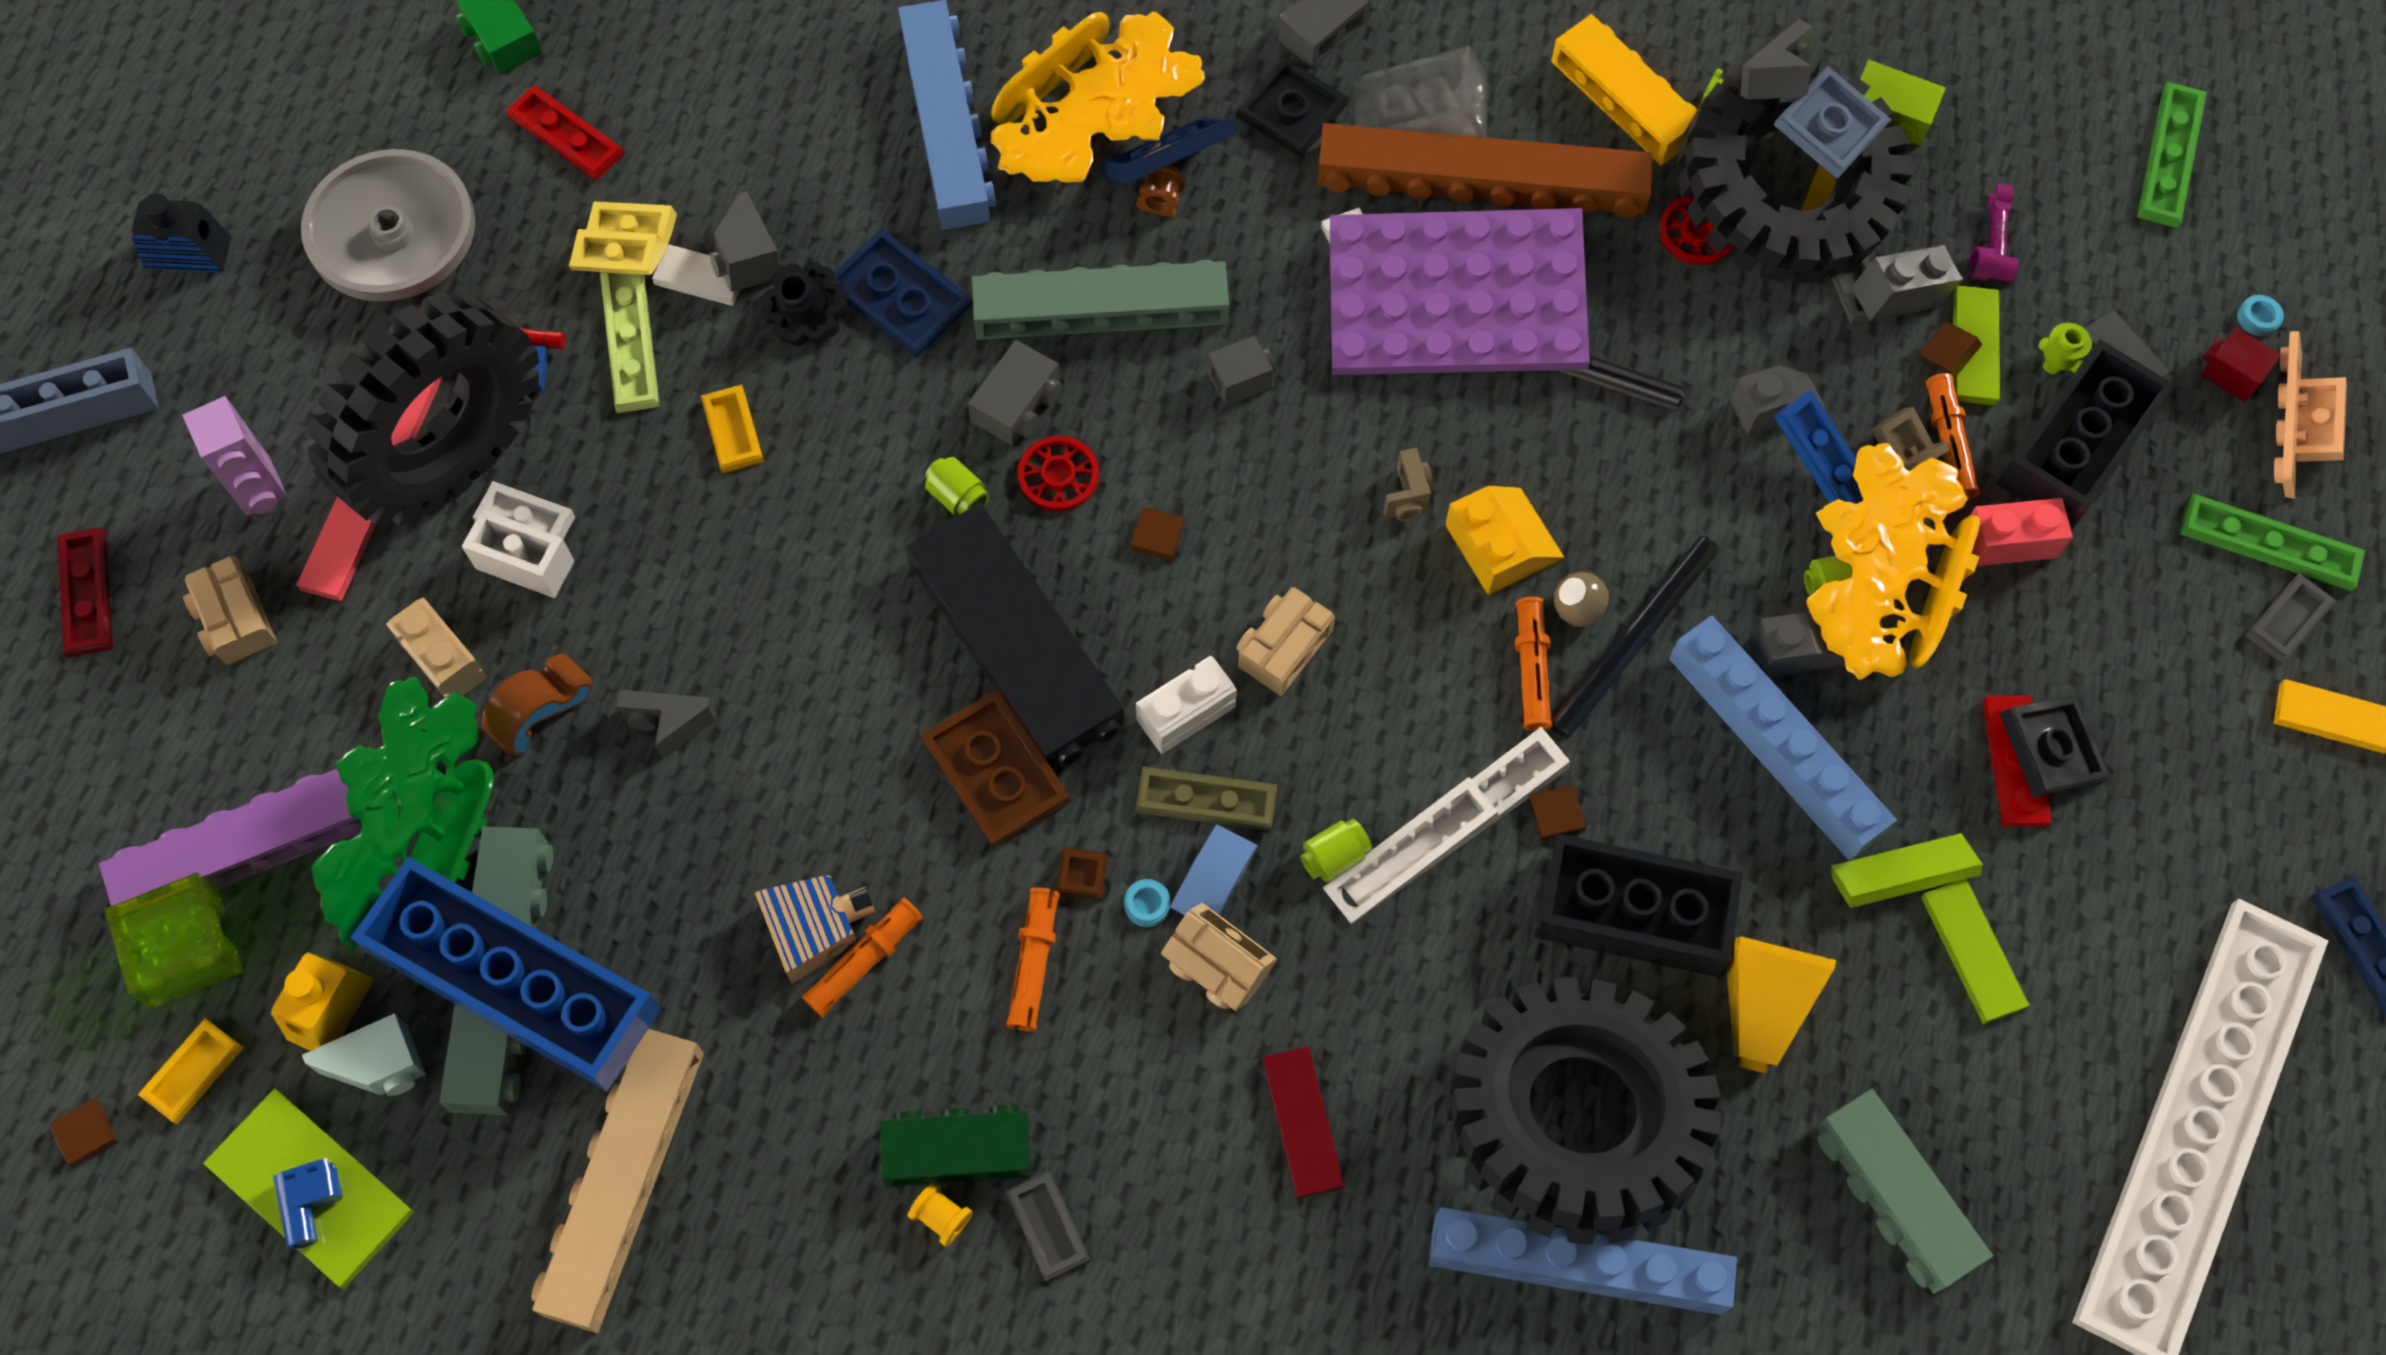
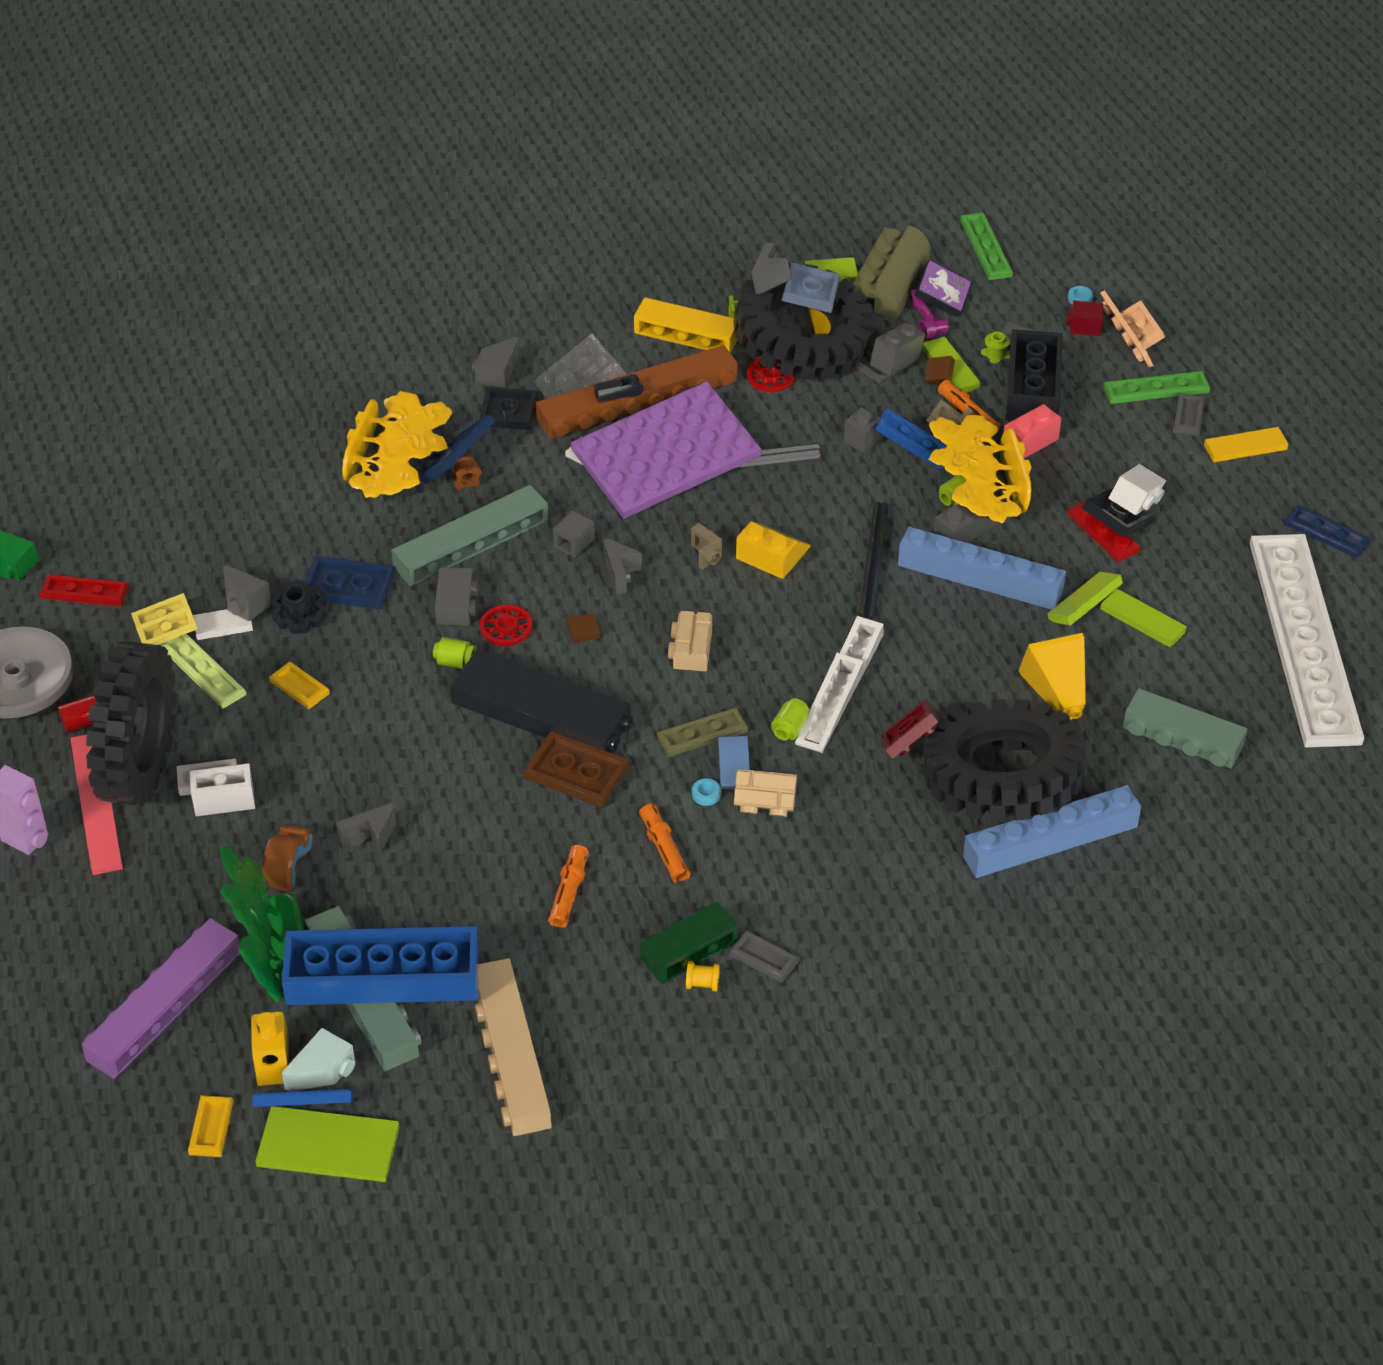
camera: 30 degrees left, 20 degrees down
(83, 1133) = (167, 1186): reddish brown tile -> none
(172, 940) = (156, 1060): clear neon green piece -> none
(228, 610) = (60, 898): tan brick -> none
(300, 1192) = (331, 1139): blue piece -> none
(316, 1102) = (303, 1097): none -> blue tile
(436, 649) = (200, 857): tan brick -> none
(811, 922) = (527, 882): torso -> none
(945, 116) = (312, 487): medium blue brick -> none
(1082, 873) = (661, 794): reddish brown tile -> none
(1186, 704) = (661, 691): white brick -> none
(1270, 450) = (620, 562): none -> dark grey slope
(1302, 1123) = (864, 847): dark red tile -> none
(1450, 160) = (618, 388): none -> black bar
(1480, 974) = (908, 729): none -> dark red plate
(1533, 648) = (824, 587): orange pin -> none
(1557, 812) = (892, 654): reddish brown tile -> none
(1581, 599) = (834, 554): dark tan piece -> none
(1639, 905) = (965, 668): black brick -> none
(1993, 135) = (893, 269): none -> olive brick
(2051, 204) = (943, 288): none -> tile
(2109, 726) = (1138, 489): none -> white brick

